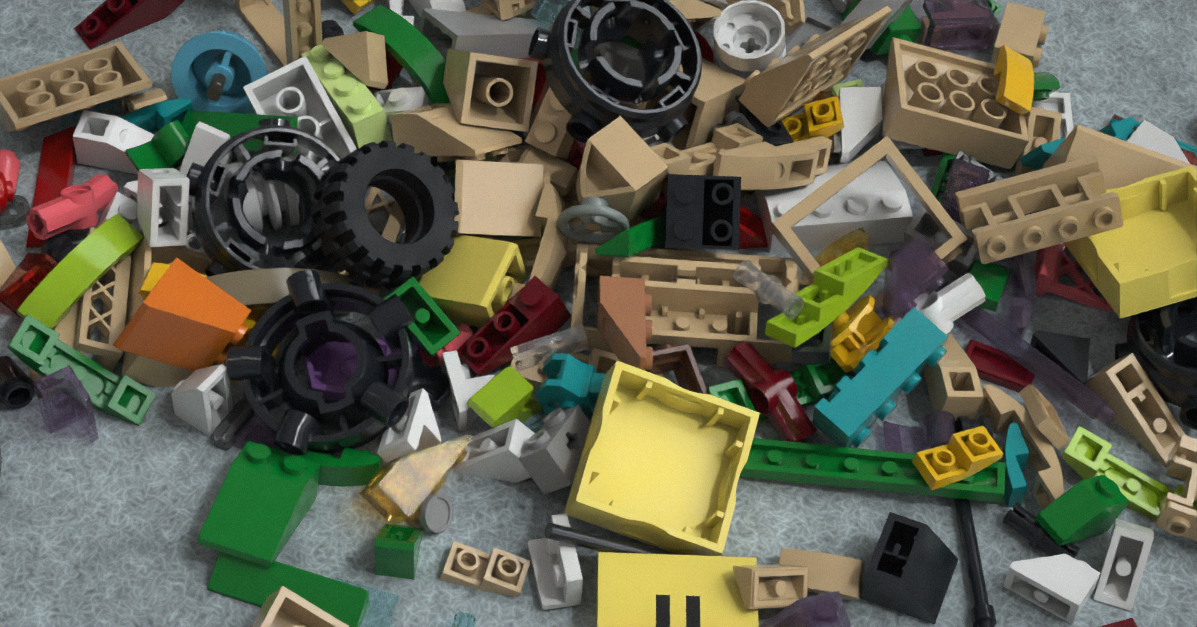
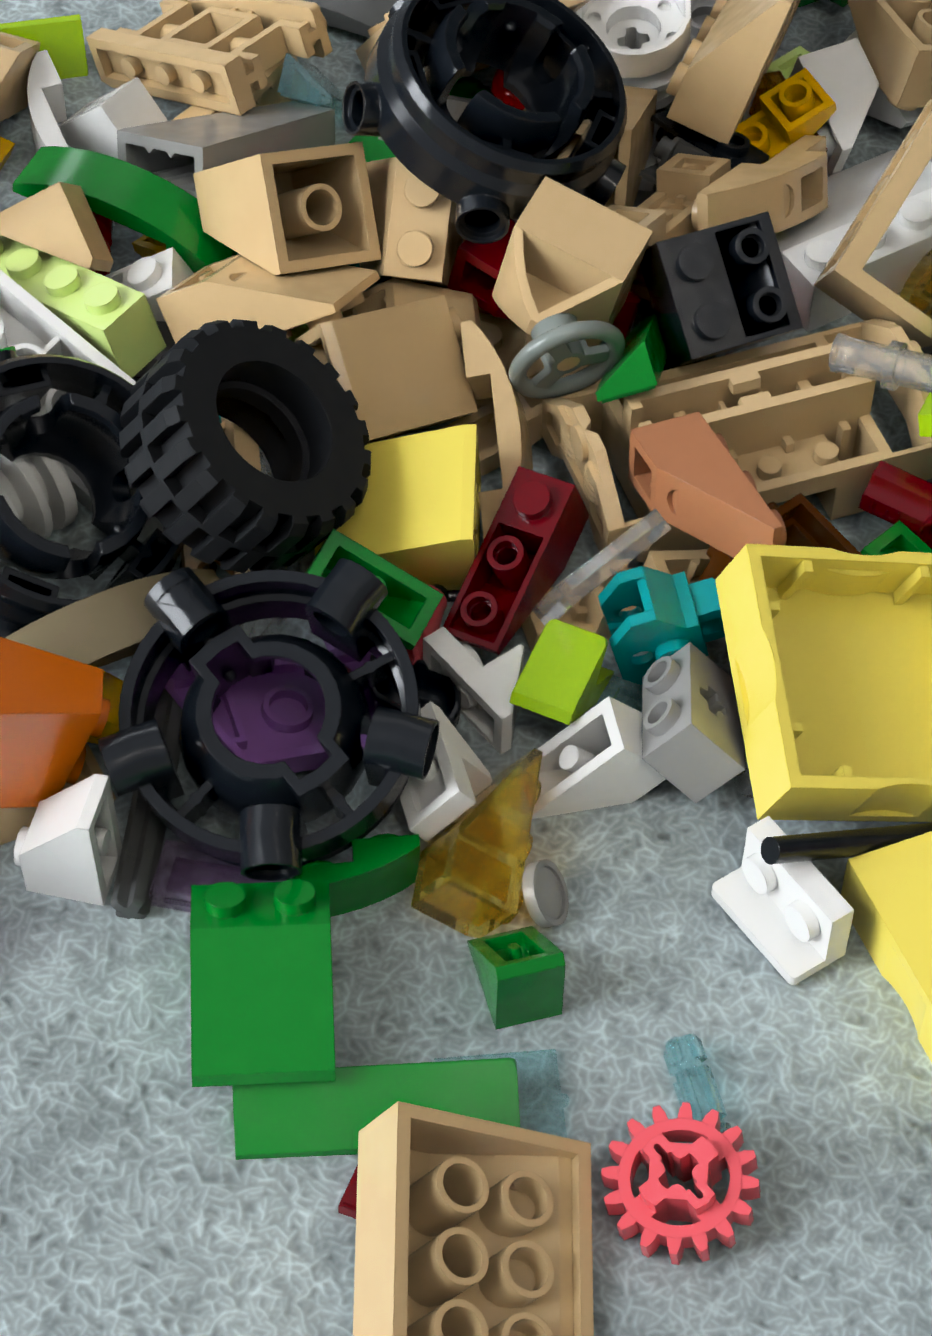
camera: 20 degrees left, 0 degrees up
(493, 572) = (681, 955): tan slope -> none

